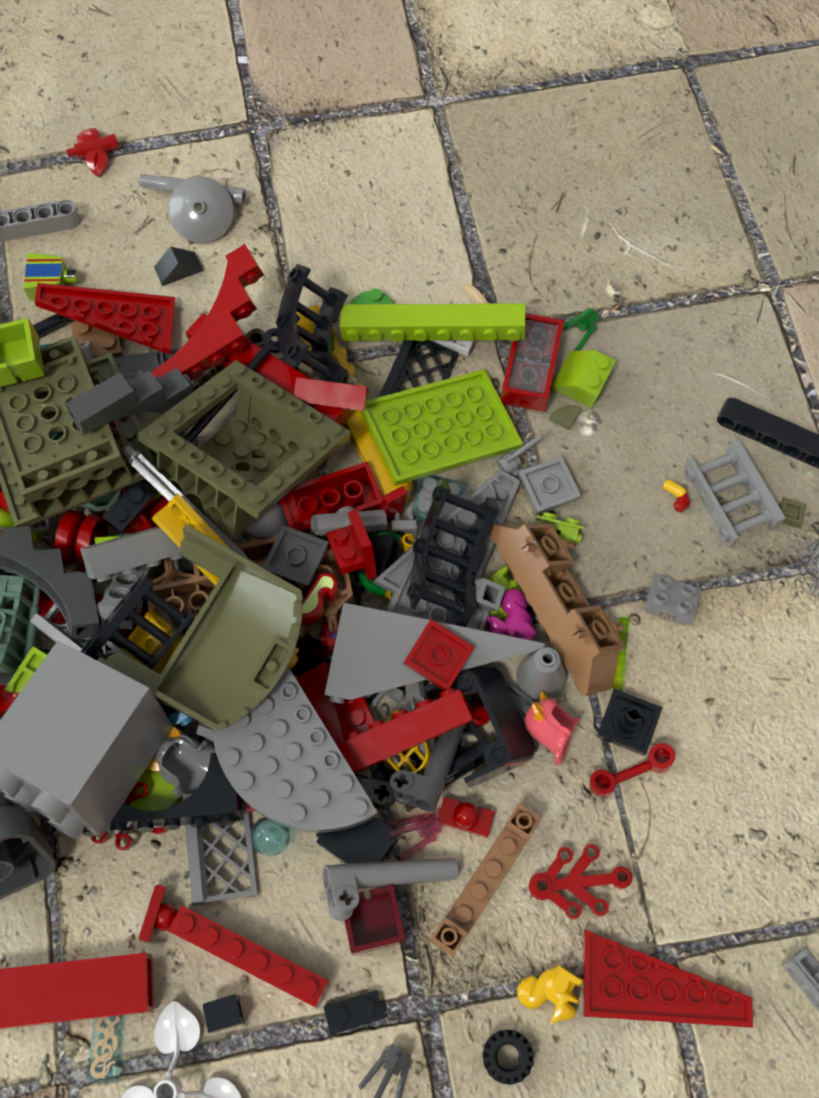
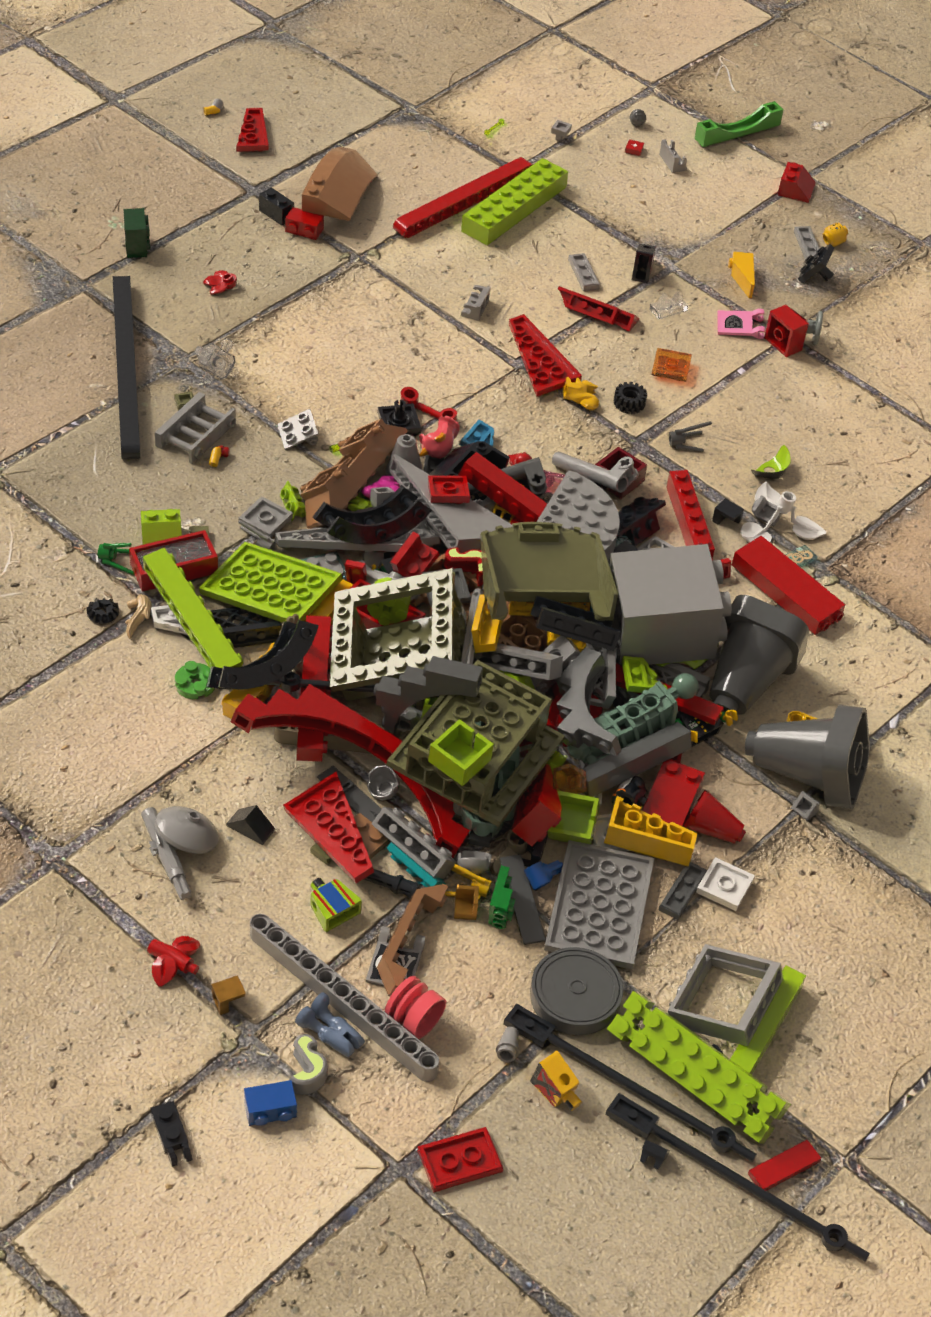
camera: 130 degrees left, 20 degrees down
(30, 159) = (227, 991): none -> pearl gold panel
(195, 1072) = (764, 510): none -> light grey bracket
(293, 880) = (640, 519): none -> black bracket
(315, 490) = (389, 611): none -> lime brick
(331, 394) = (308, 612): tile -> none
(353, 1012) = (665, 463): black plate -> none
(485, 880) = (577, 446): medium nougat slope -> none
(503, 286) = (99, 616): none -> black gear
(539, 794) = (479, 432): none -> dark azure wing
(575, 882) = (528, 419): red plant -> none

